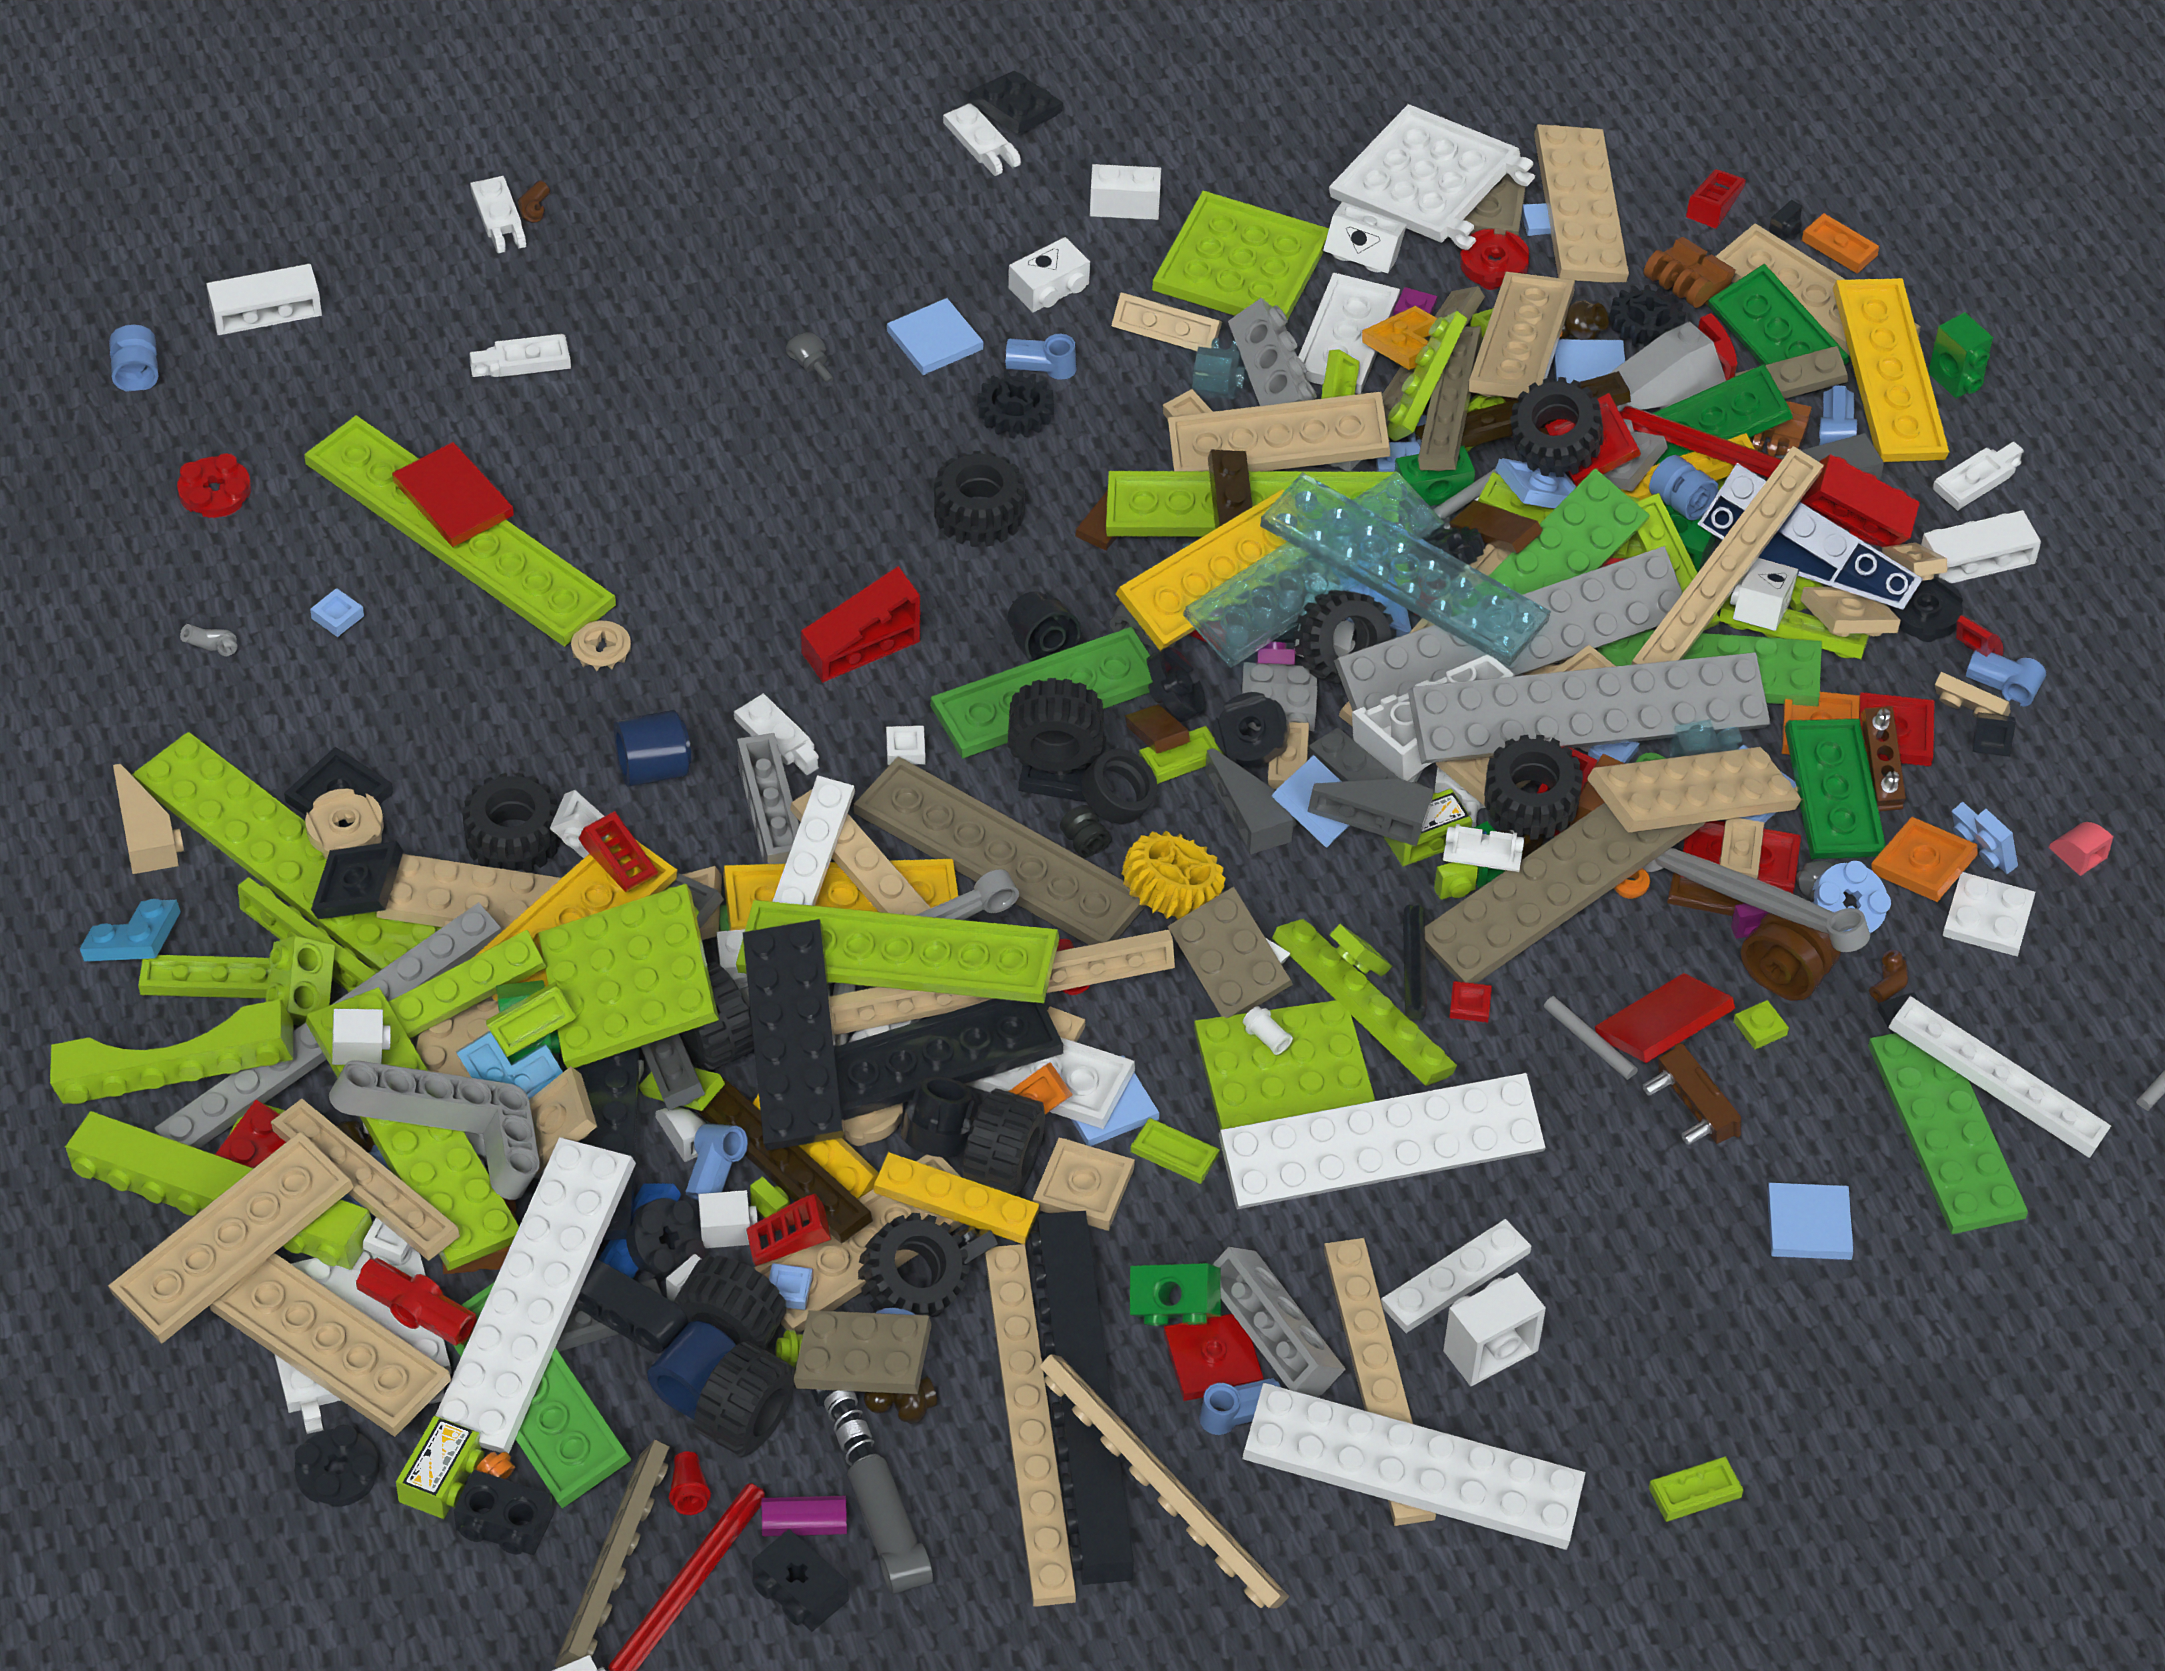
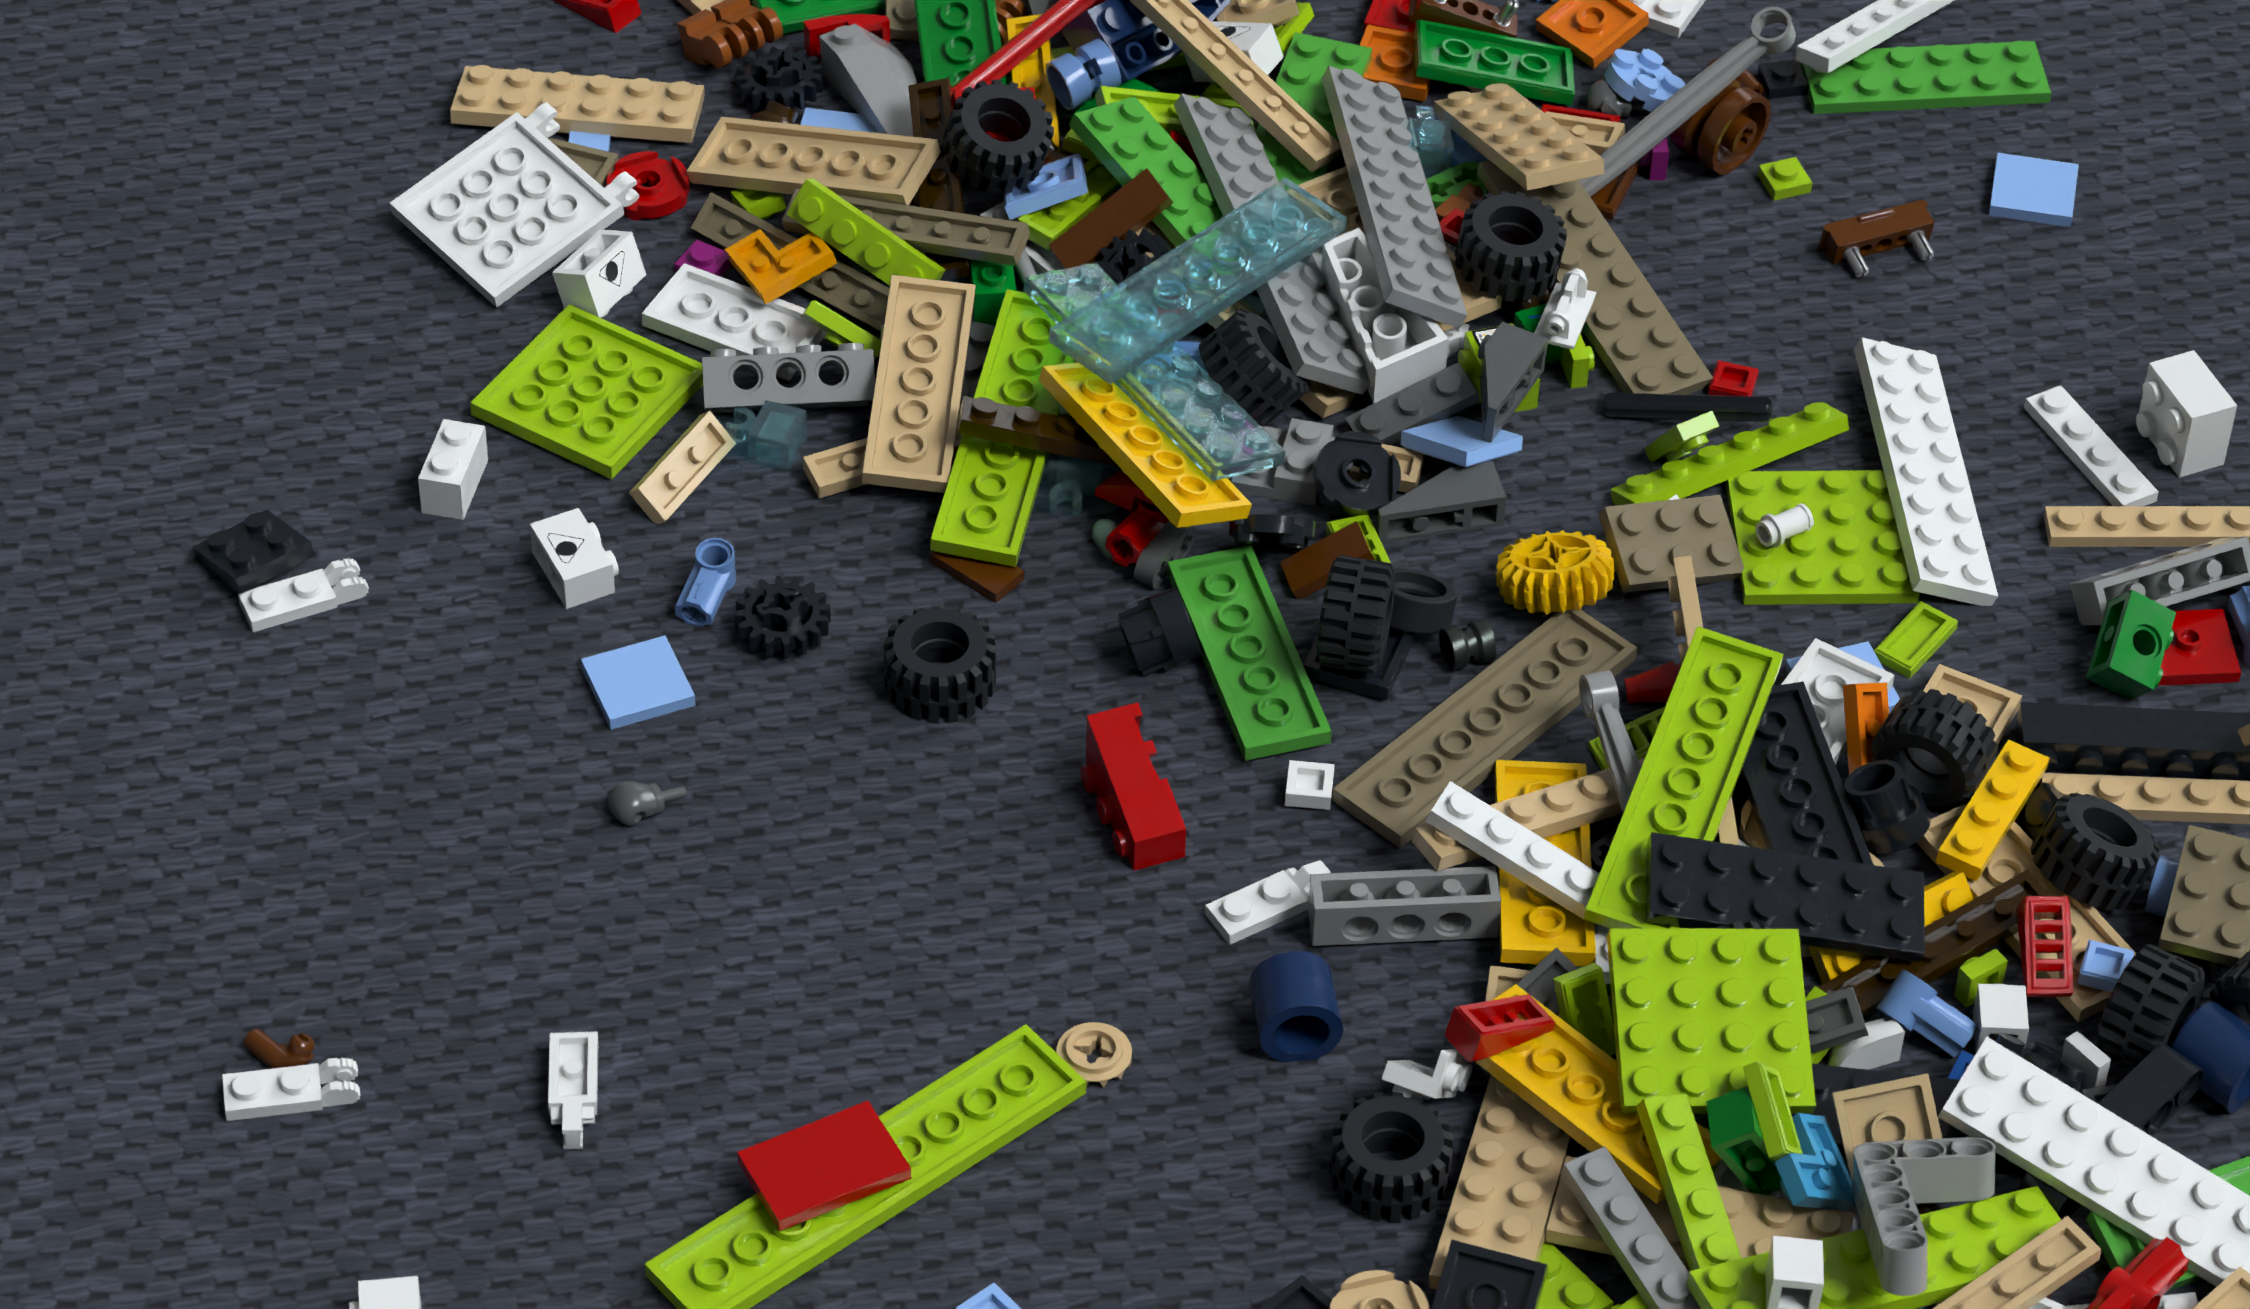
camera: 80 degrees left, 5 degrees down
(1590, 1038) = (1789, 302): light grey bar -> none
(1665, 1017) = (1782, 235): red tile -> none

